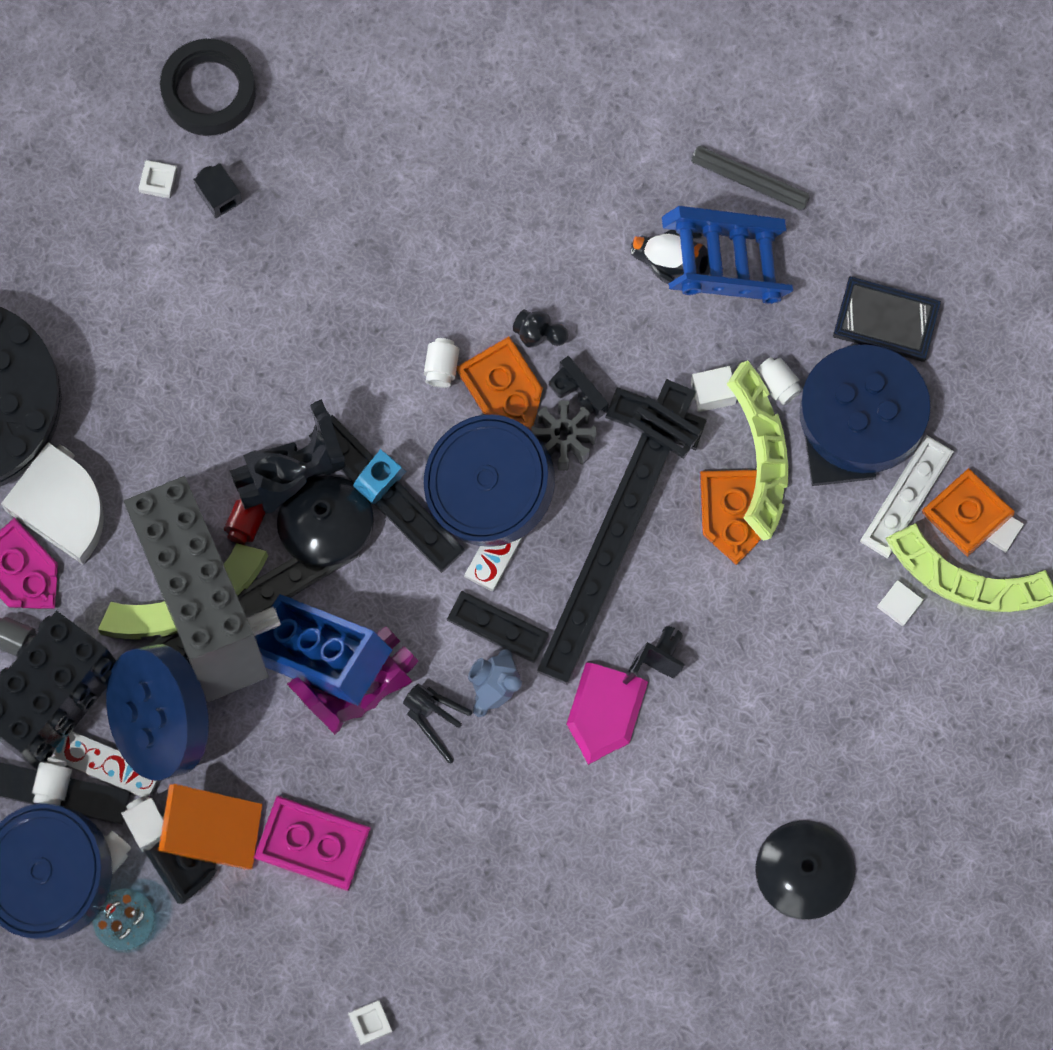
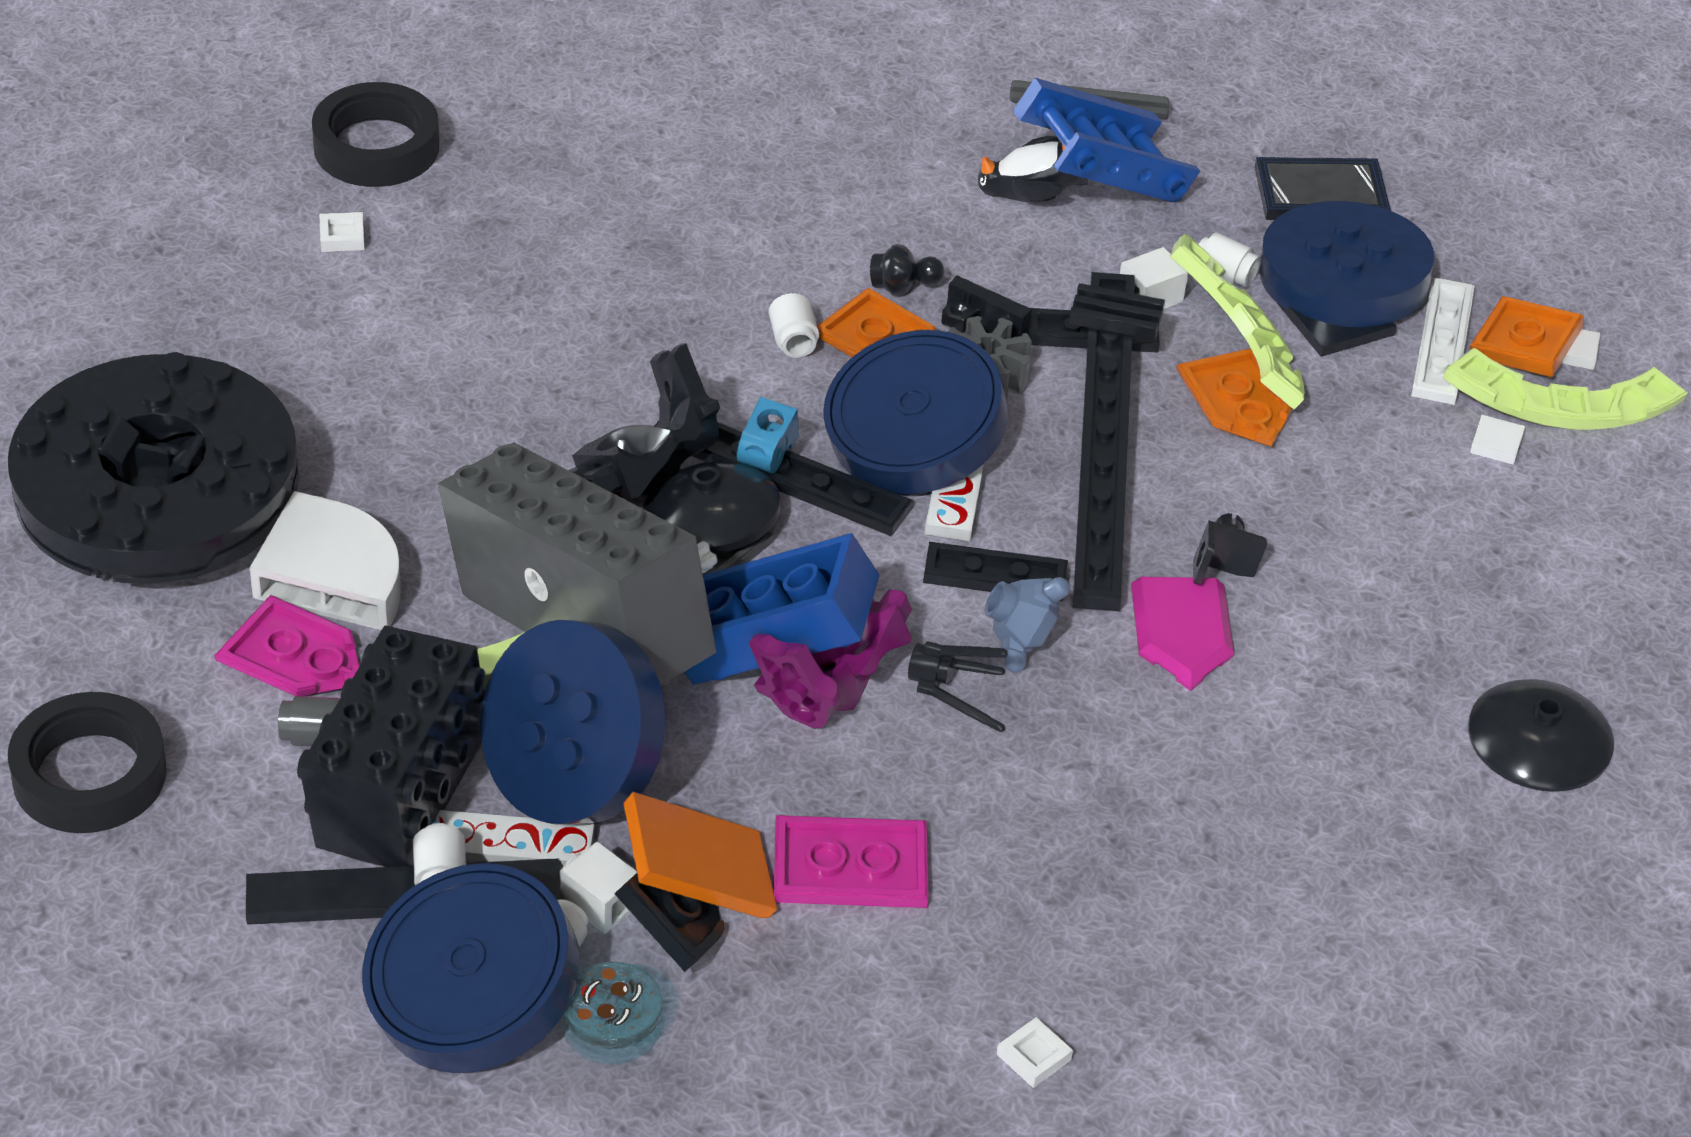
camera: 20 degrees left, 30 degrees down
(217, 190) = (428, 221): black brick -> none

